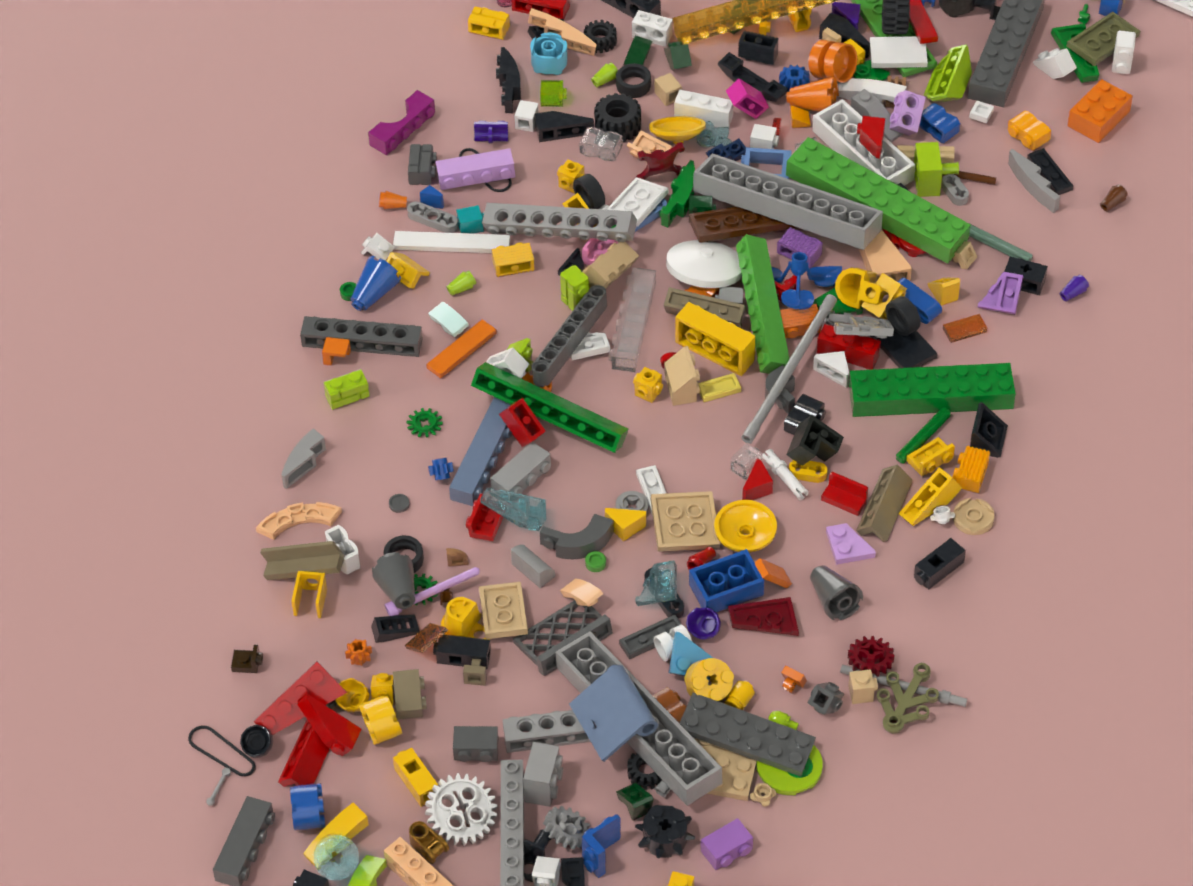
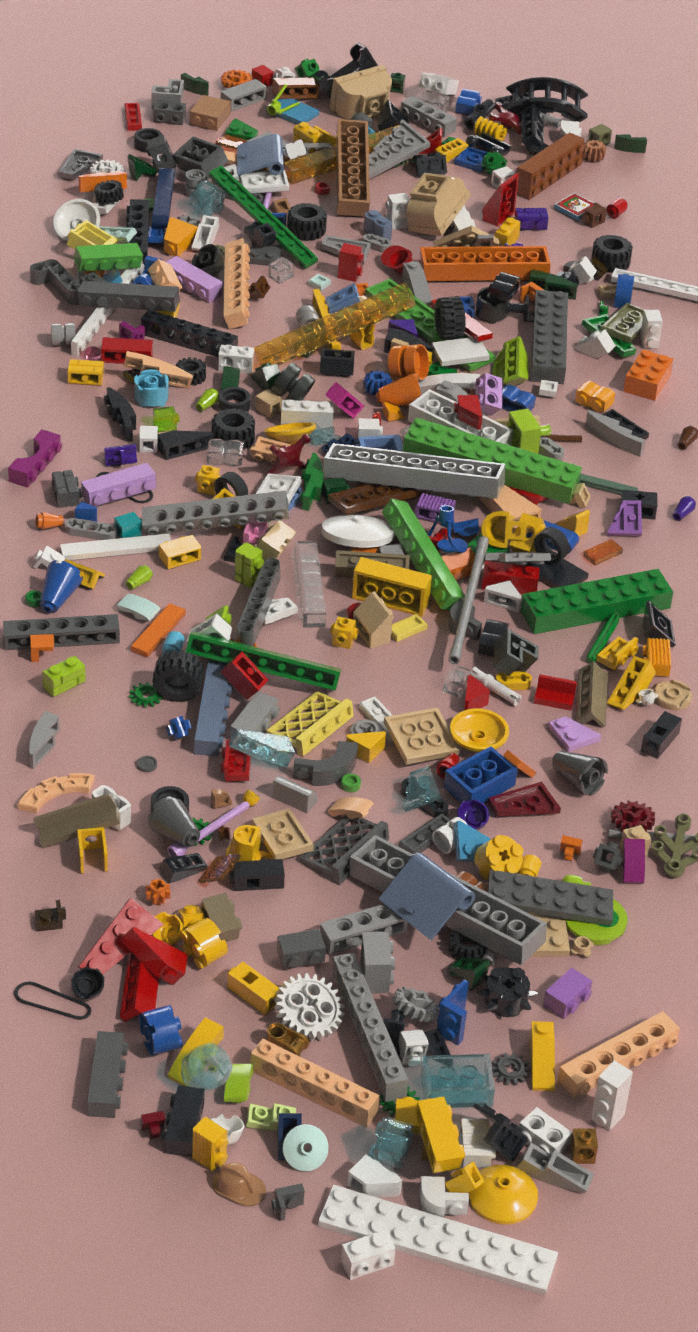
camera: 20 degrees left, 10 degrees down
(225, 773) = (64, 1018): light grey hinge -> none
(456, 410) = (178, 676): none -> black tyre
(467, 369) = (173, 641): none -> medium azure brick
(474, 673) = (276, 891): dark tan tile -> none
(487, 561) = (251, 797): none -> yellow hinge
(587, 492) = (319, 728): none -> light yellow fence
(693, 69) = (288, 382): none -> pearl dark grey wheel
(734, 69) = (322, 383): black slope -> none
(850, 708) = (634, 861): none -> magenta slope

